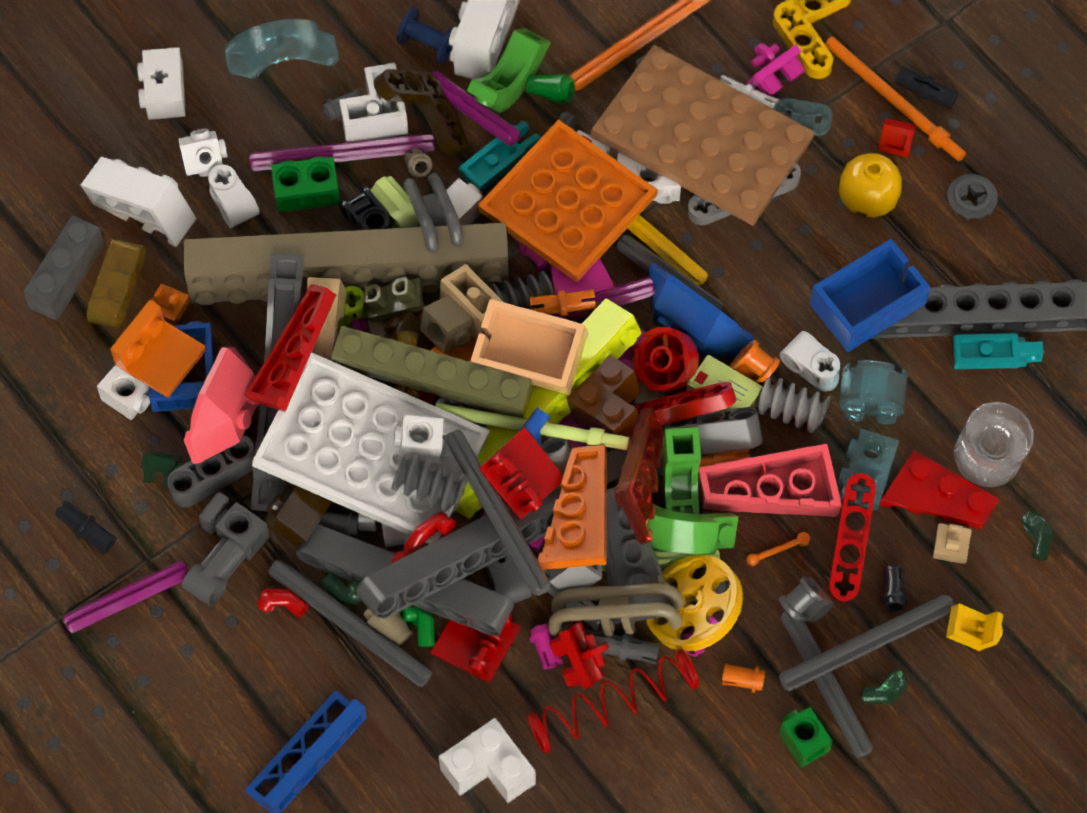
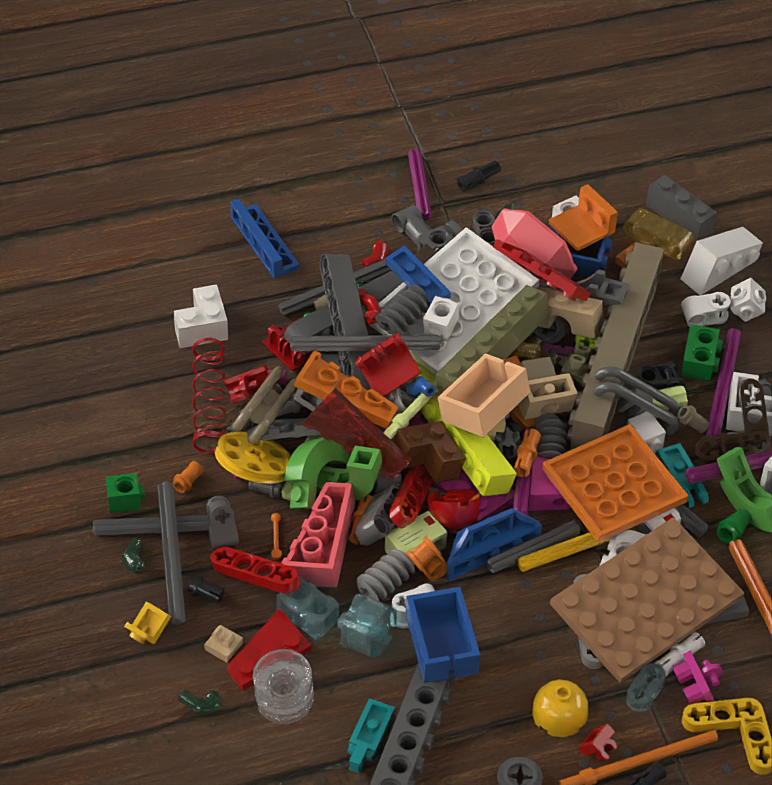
camera: 110 degrees right, 15 degrees down
(364, 488) = (413, 271): none -> blue plate

